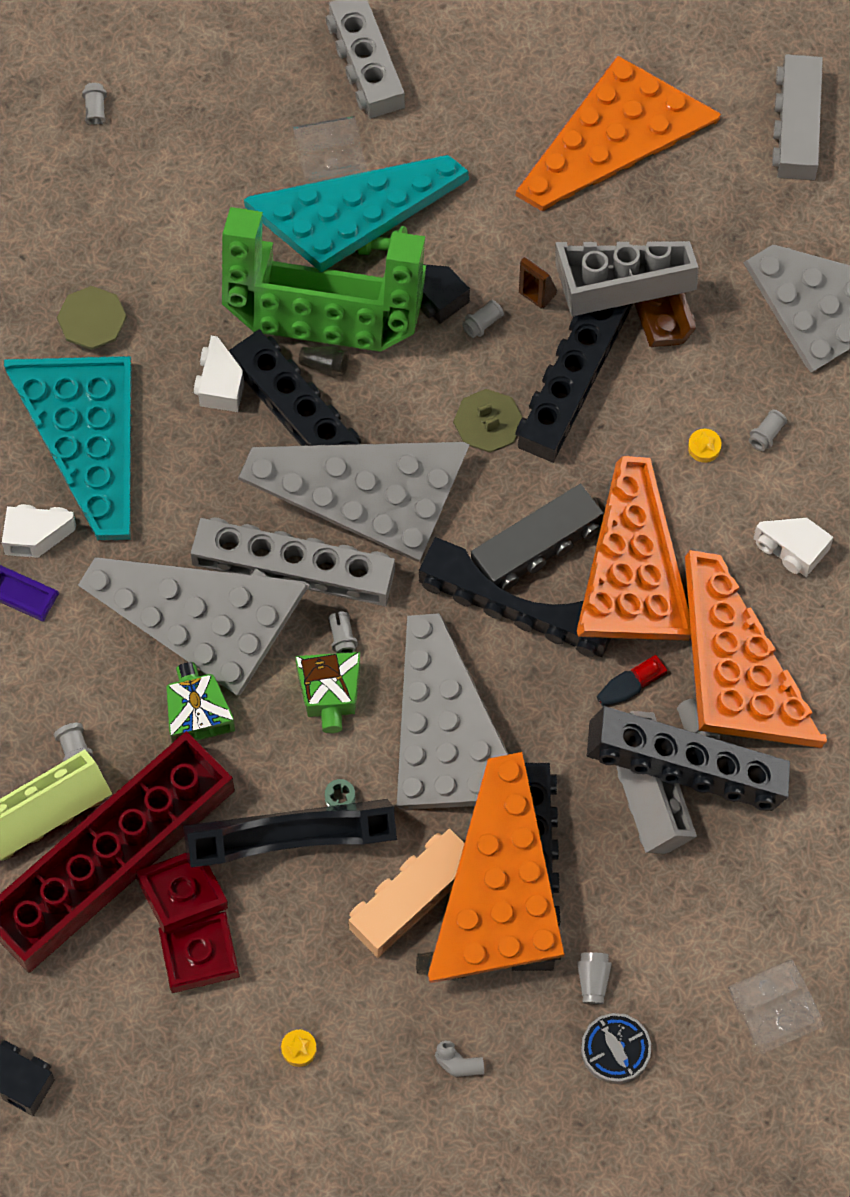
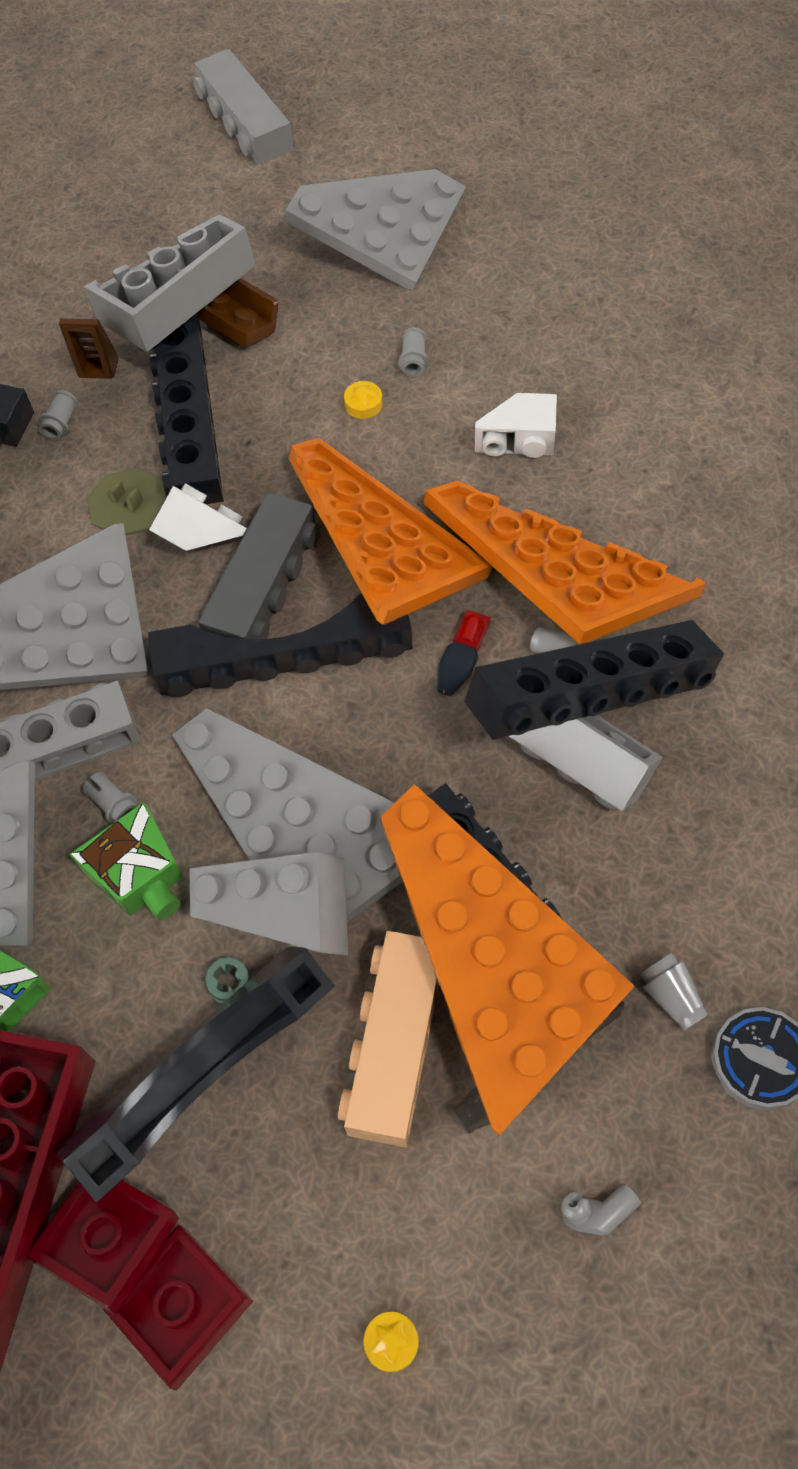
camera: 30 degrees left, 5 degrees down
(398, 768) = (279, 898): none -> light grey wedge
(517, 473) = (192, 523): none -> white slope
(613, 128) = (75, 204): orange wing -> none

